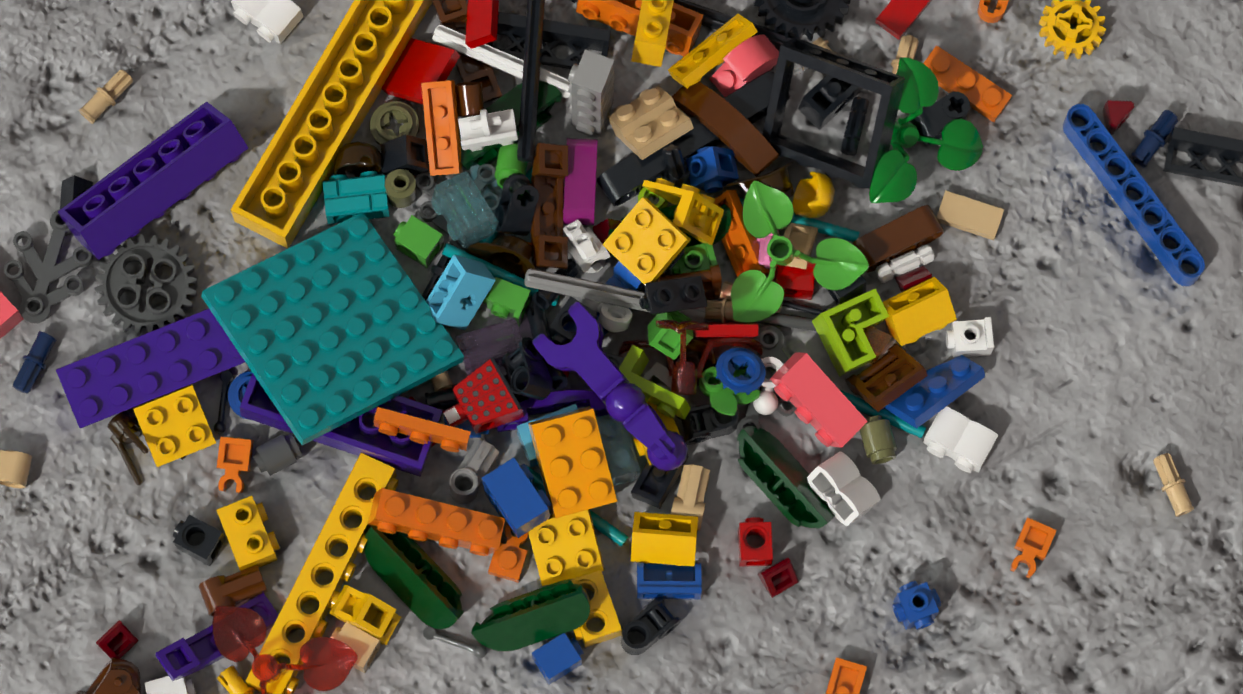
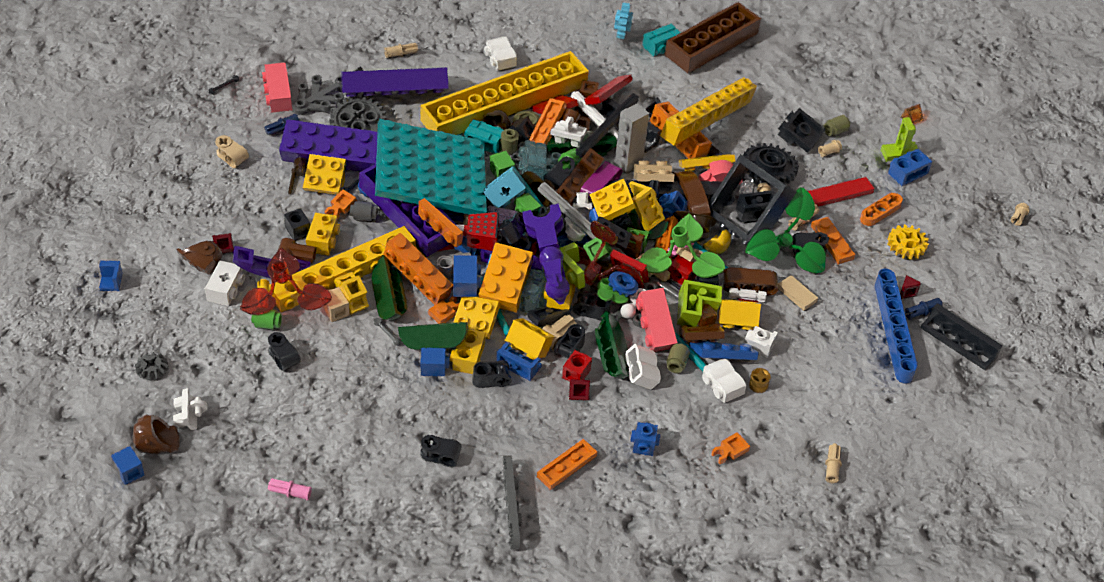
camera: 30 degrees right, 25 degrees down
(721, 513) = (572, 340): none -> black piece
(1008, 402) = (763, 377): none -> pearl gold wheel

